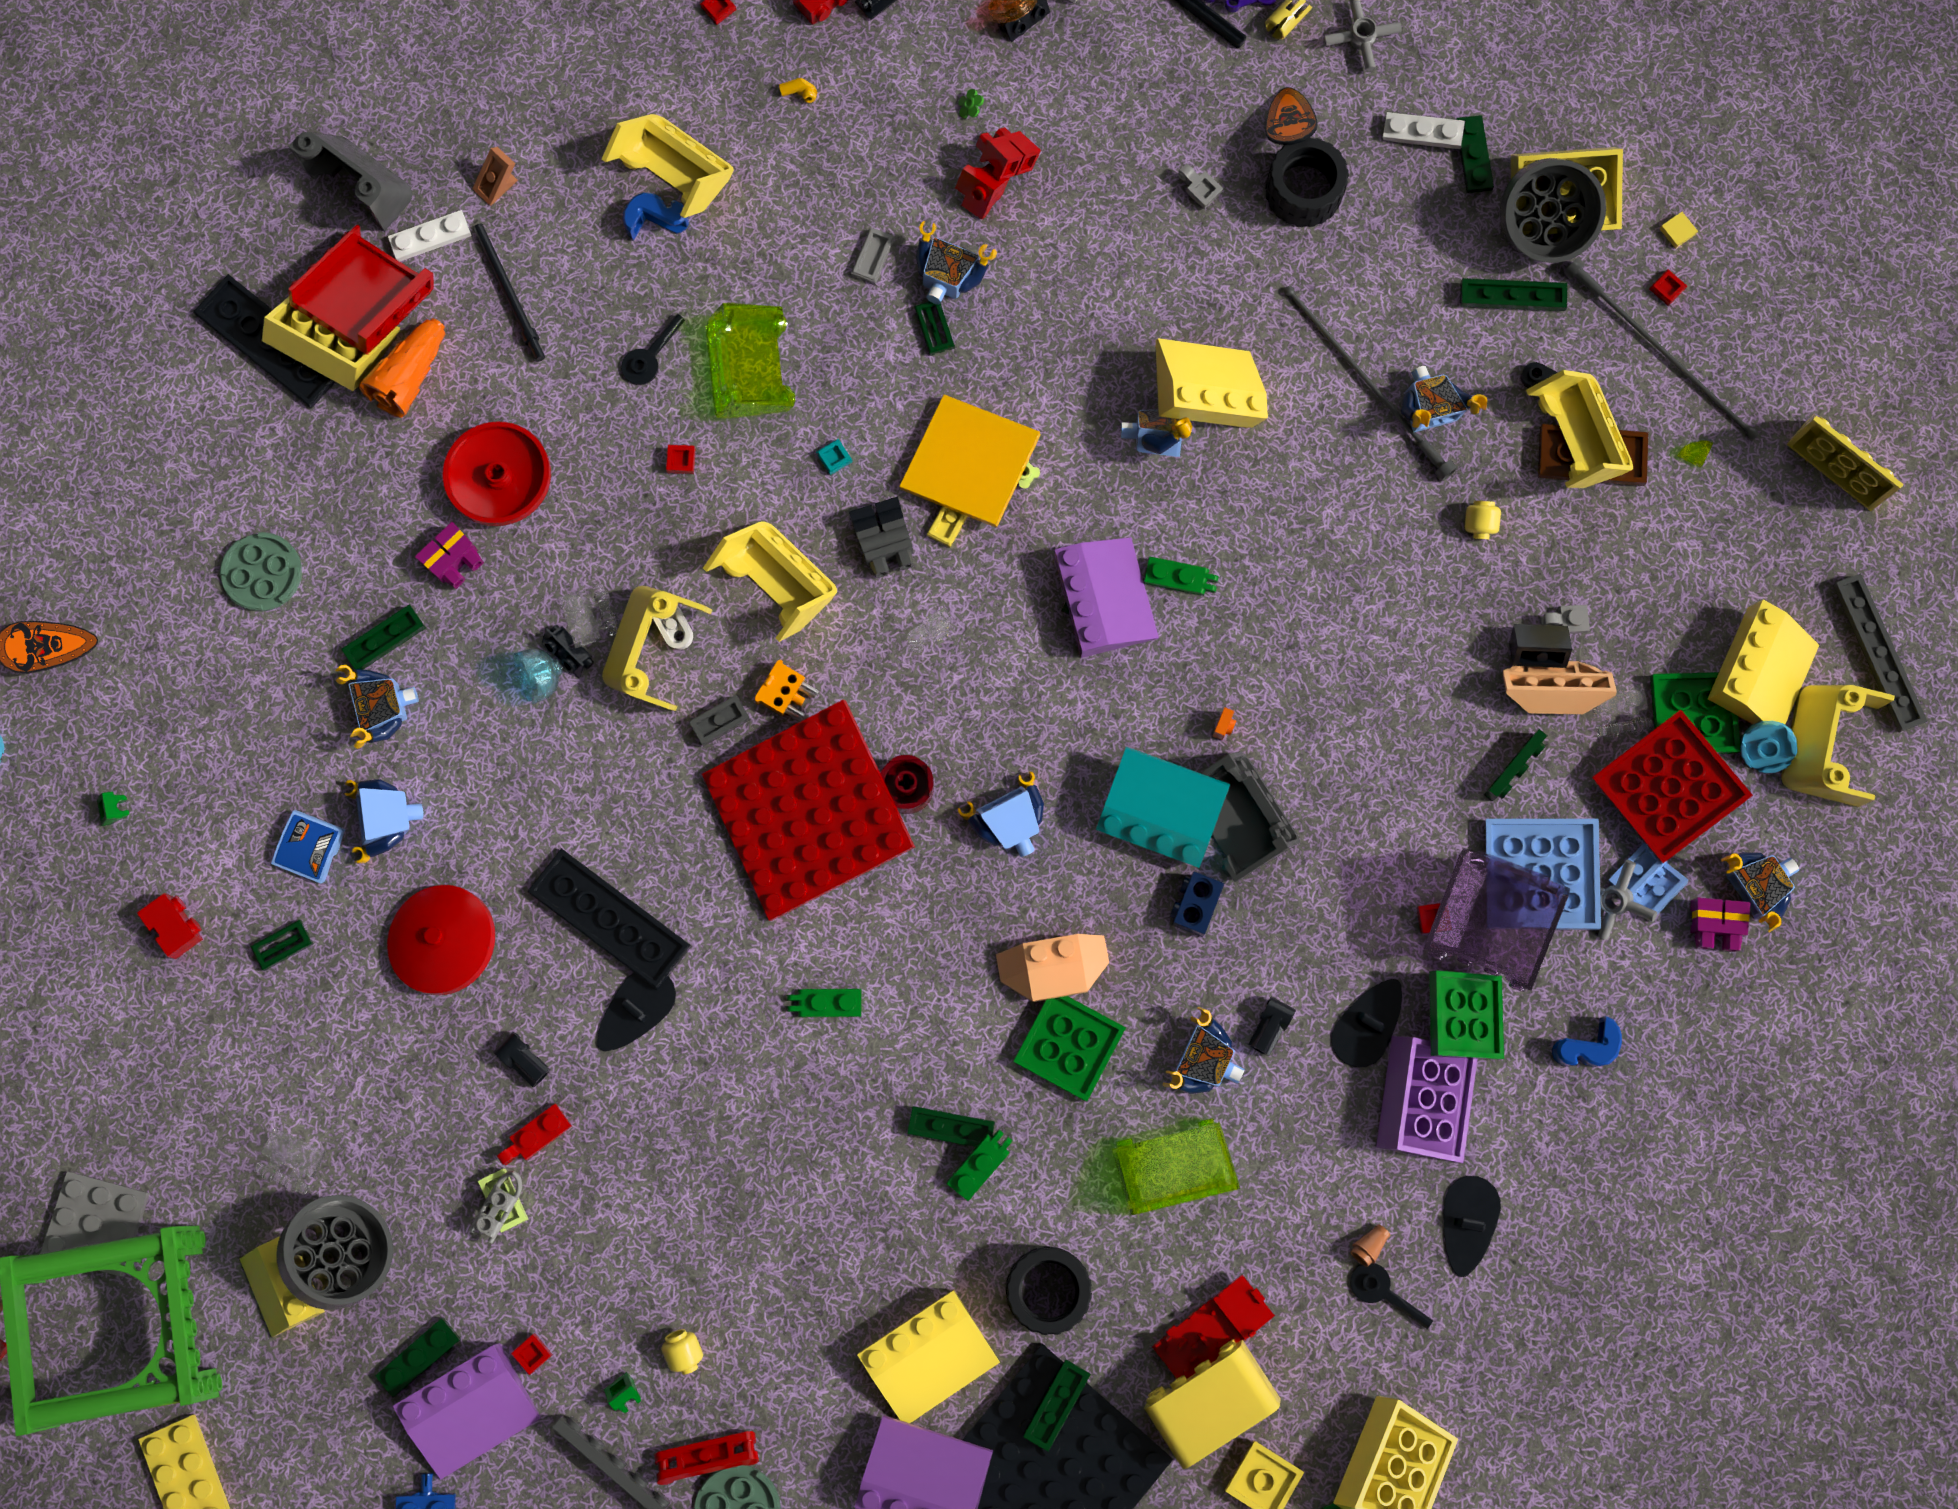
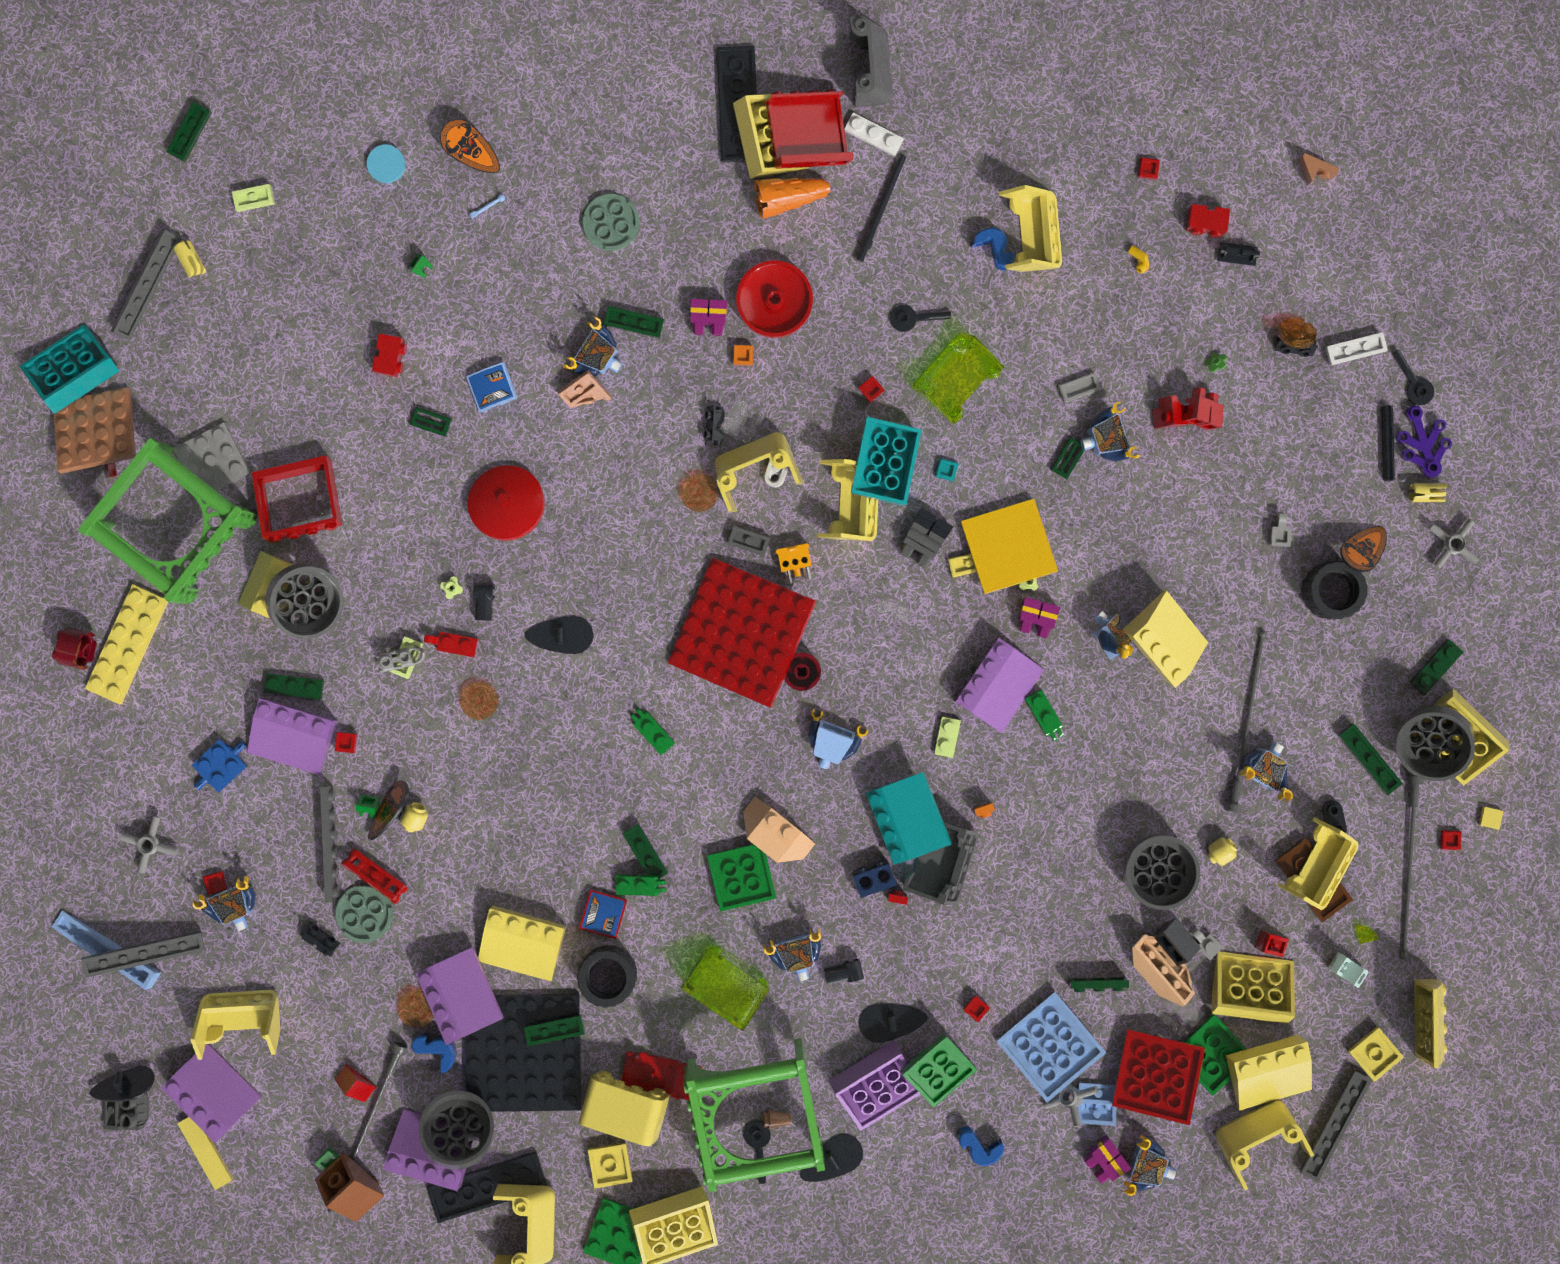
camera: 50 degrees right, 10 degrees up
(126, 662) = (501, 198): none -> light blue hinge
(186, 1146) = (287, 471): none -> red window
(381, 815) = (541, 411): light blue torso -> none
(402, 752) = (583, 390): none -> wing
(478, 1089) = (457, 589): none -> yellowish green plate
(495, 176) = (938, 139): nougat slope -> none
(524, 557) = (743, 355): none -> orange plate
(537, 673) = (687, 423): clear light blue cylinder -> none
(609, 919) = (594, 579): black tile -> none
(629, 1169) = (482, 695): none -> clear orange tile
(630, 731) = (699, 498): none -> clear orange tile
(648, 1371) = (389, 809): none -> shield
(768, 504) = (886, 461): none -> teal slope
(977, 1235) = (603, 914): none -> slope
(1067, 492) = (1029, 615): none -> magenta hips
(1113, 696) = (947, 737): none -> yellowish green plate
(1238, 896) = (897, 896): none -> red plate
(1258, 1279) = (704, 1082): none -> bright green arch
(1423, 130) = (1425, 627): white plate -> none
(1471, 570) = (1172, 894): none -> dark grey wheel
(1497, 917) = (1005, 1045): clear purple windscreen -> none
(1624, 553) = (1271, 943): none -> red slope
(1658, 611) = (1253, 987): none -> light yellow slope
(1719, 499) = (1348, 970): none -> light aqua brick
(1768, 746) = (1227, 1109): medium azure tile -> none
(1835, 547) = (1375, 1054): none -> light yellow plate

